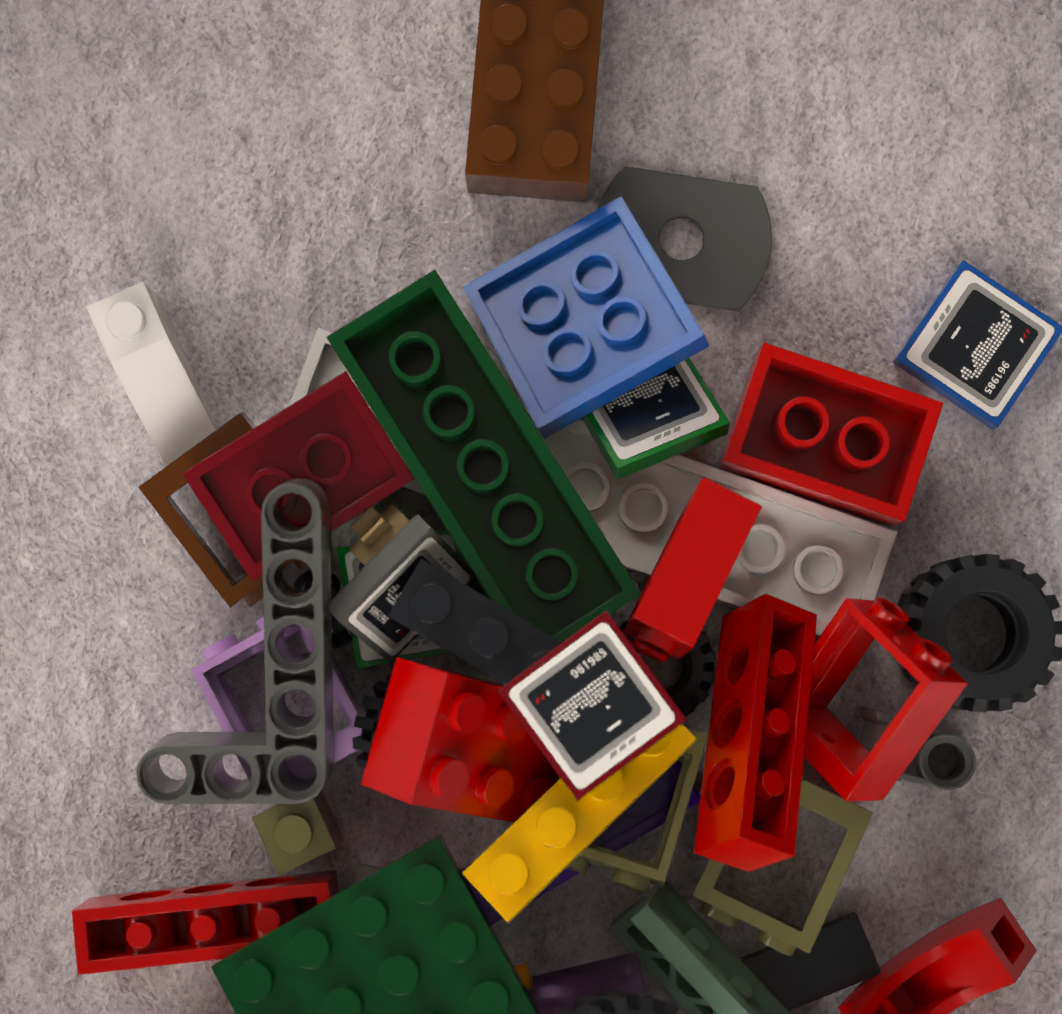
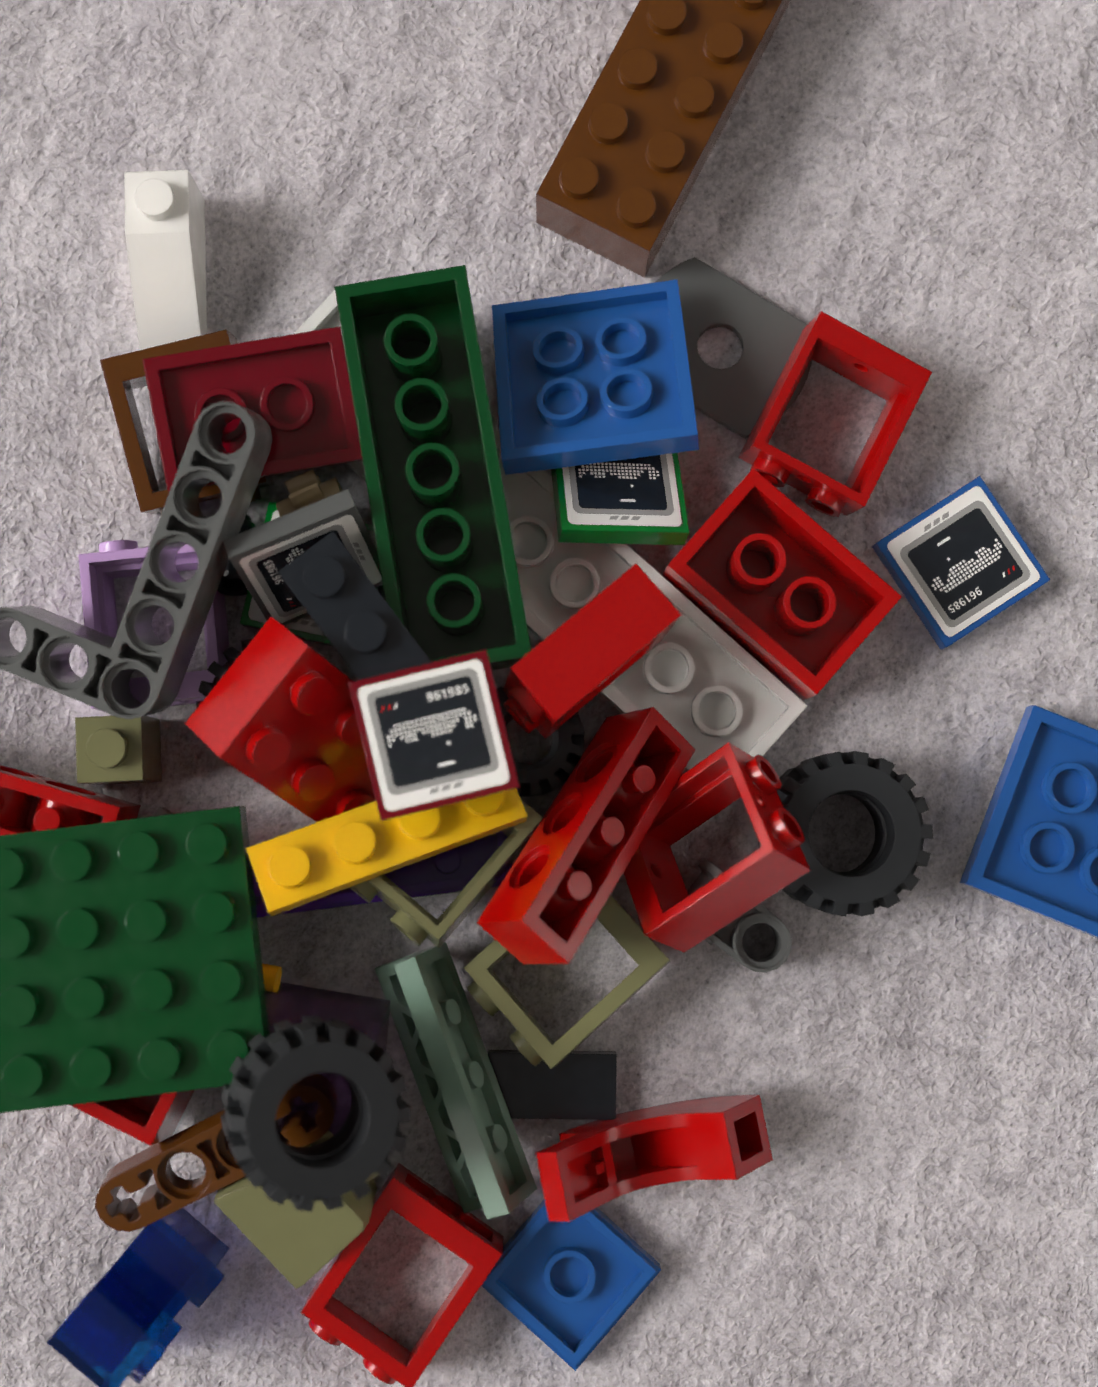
camera: 15 degrees right, 0 degrees up
(822, 202) = (865, 364): none -> red window

